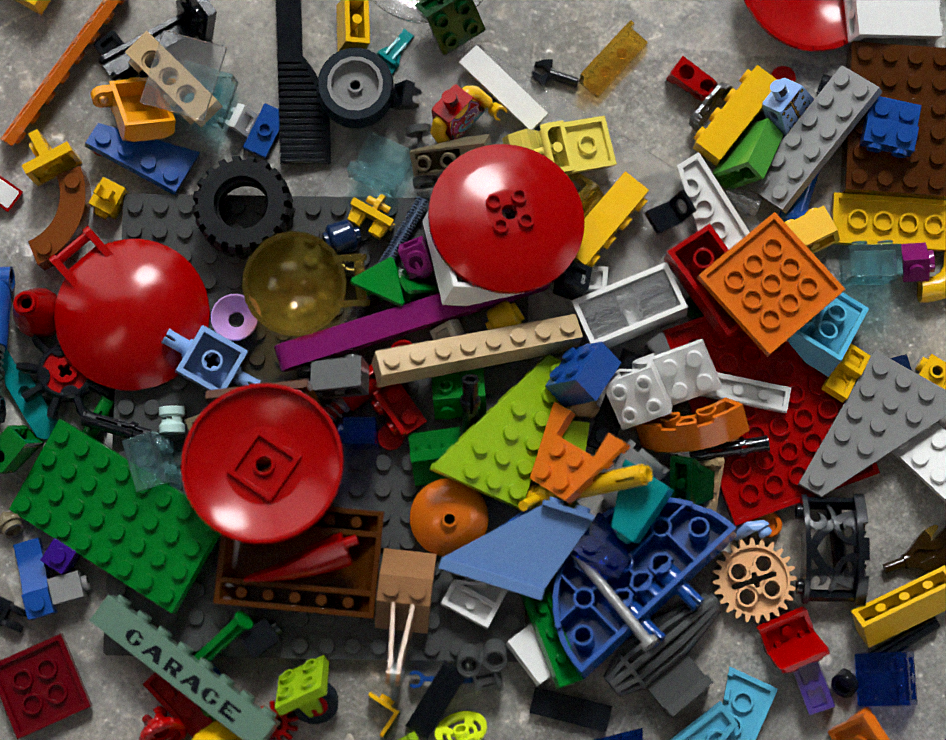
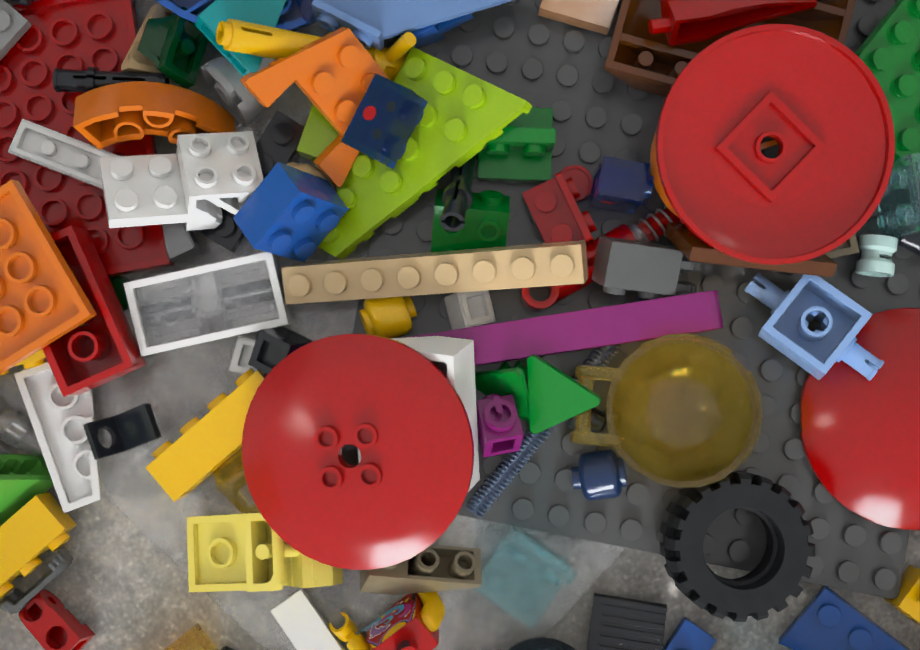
camera: 175 degrees left, 5 degrees up
(224, 309) = (787, 378): lavender piece -> none
(381, 222) = (566, 509): yellow hips -> none
(418, 131) = (463, 617): dark grey wheel -> none
(445, 498) = (531, 71): orange dish -> none
(529, 445) = (384, 121): none -> clear blue brick

